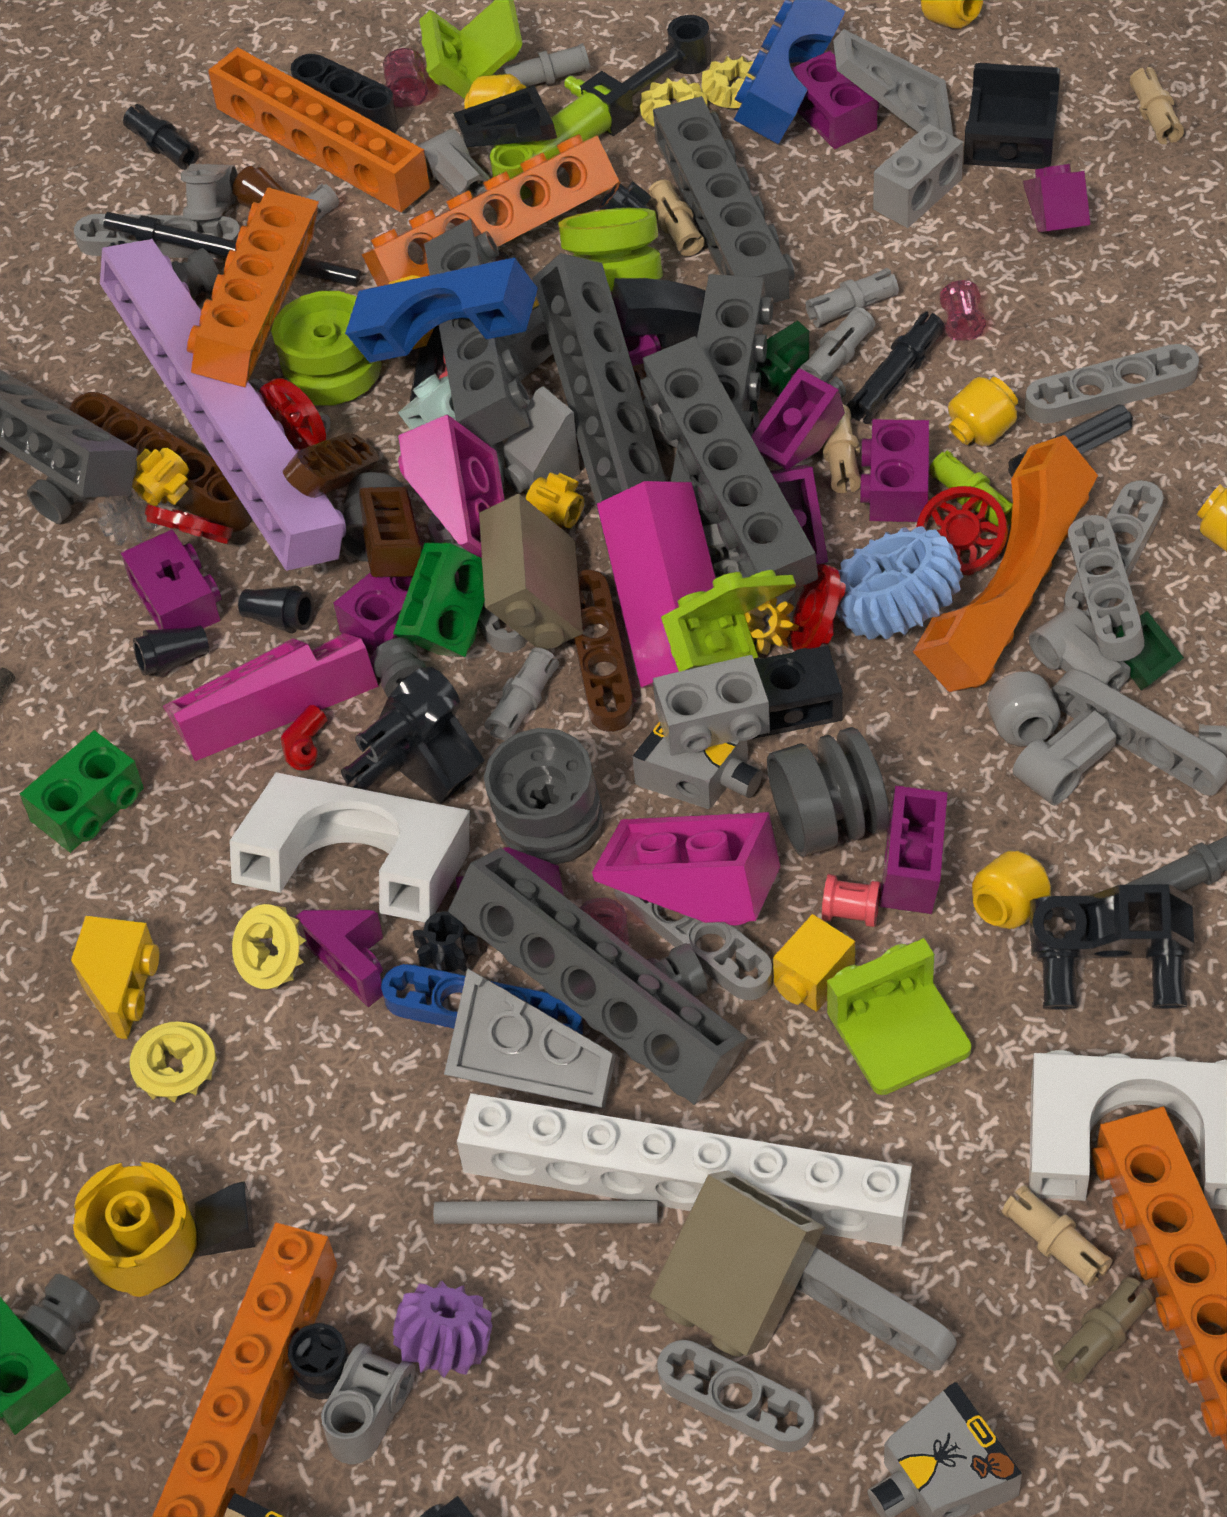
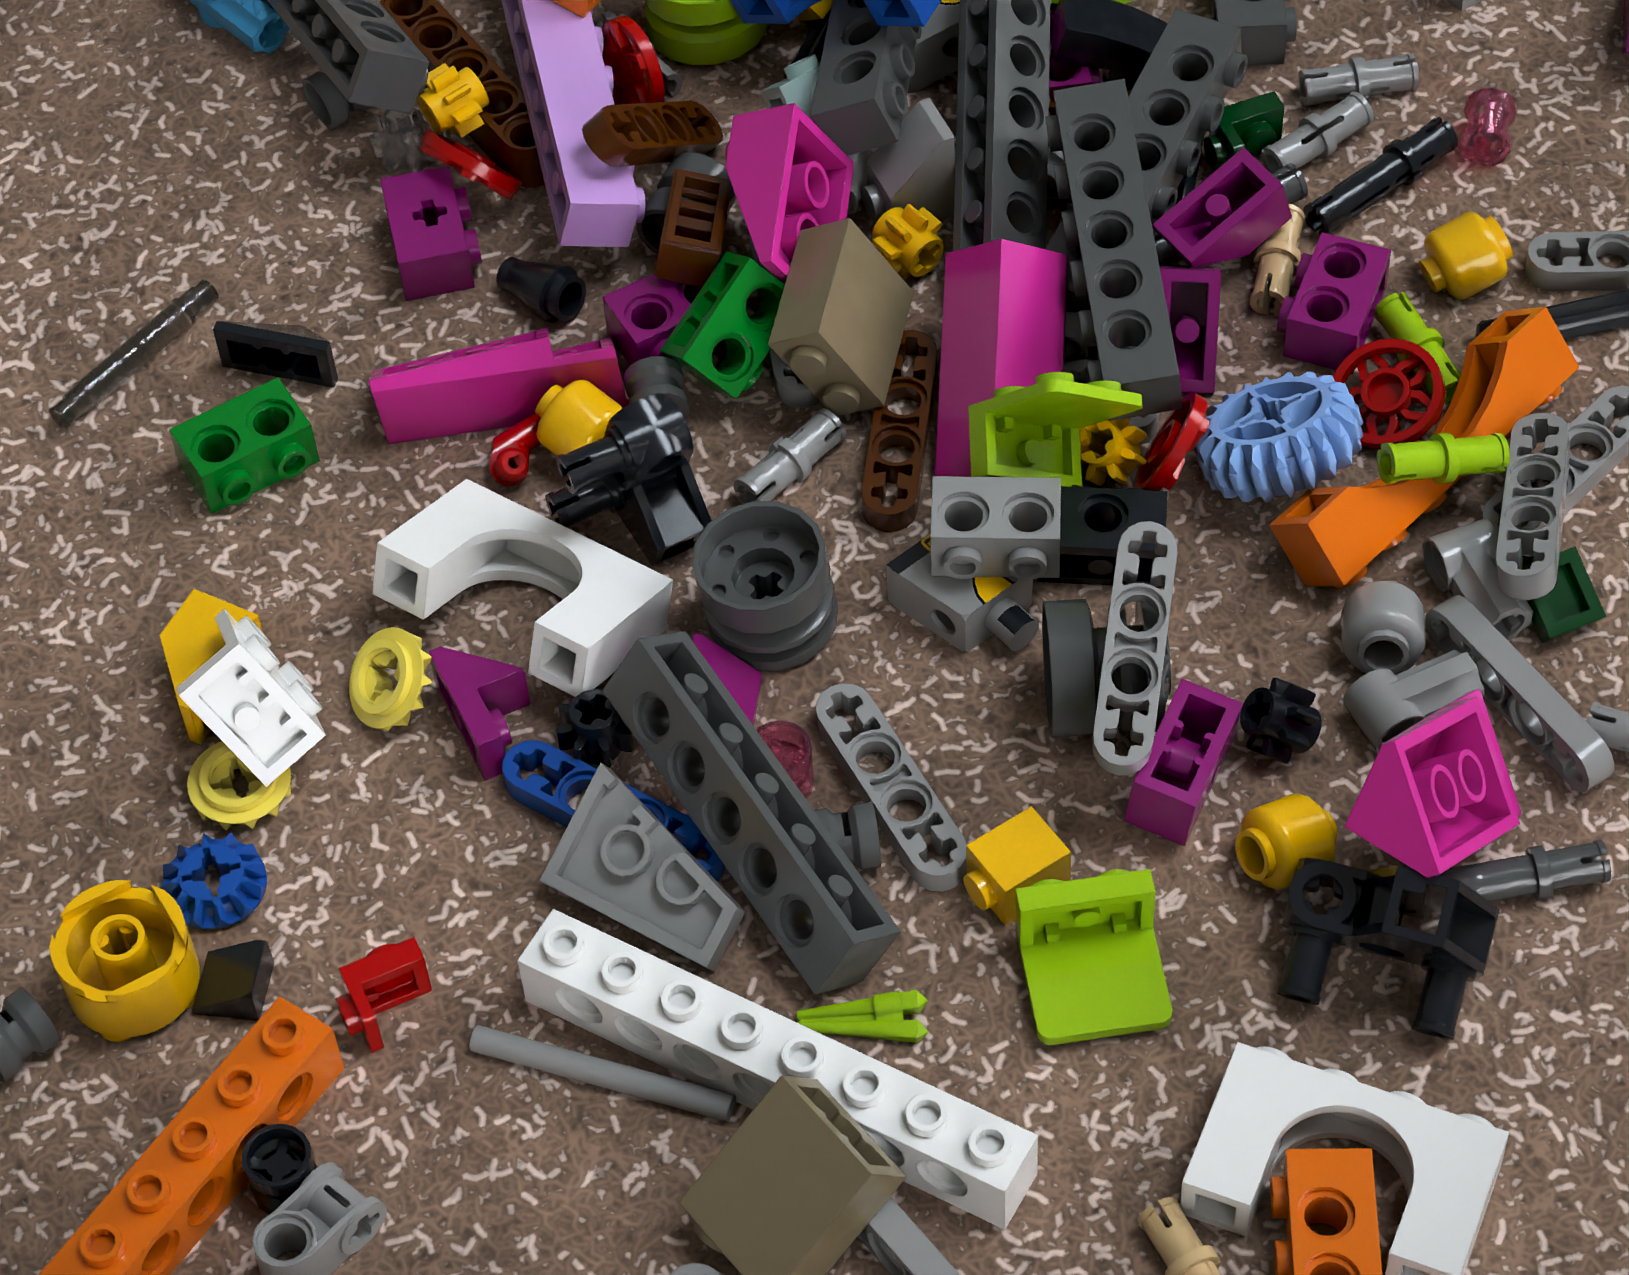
camera: 15 degrees right, 0 degrees up
(81, 710) = (276, 351): none -> black slope
(166, 649) = (400, 305): black cone -> none
(172, 993) = (252, 702): none -> white bracket
(203, 1143) = (240, 888): none -> blue gear
(346, 1188) = (379, 982): none -> red bracket
(347, 705) = (573, 416): none -> yellow head
(442, 1328) = (429, 1172): medium lavender gear -> none
(694, 864) = (915, 712): dark pink slope -> none
(740, 1111) = (870, 1017): none -> lime piece
(851, 771) = (1134, 647): none -> light grey beam
(851, 900) = (1089, 804): coral bush -> none
(974, 798) = (1280, 720): none -> black gear
(1028, 568) = (1443, 458): none -> lime pin
(1124, 822) = (1438, 790): none -> dark pink slope

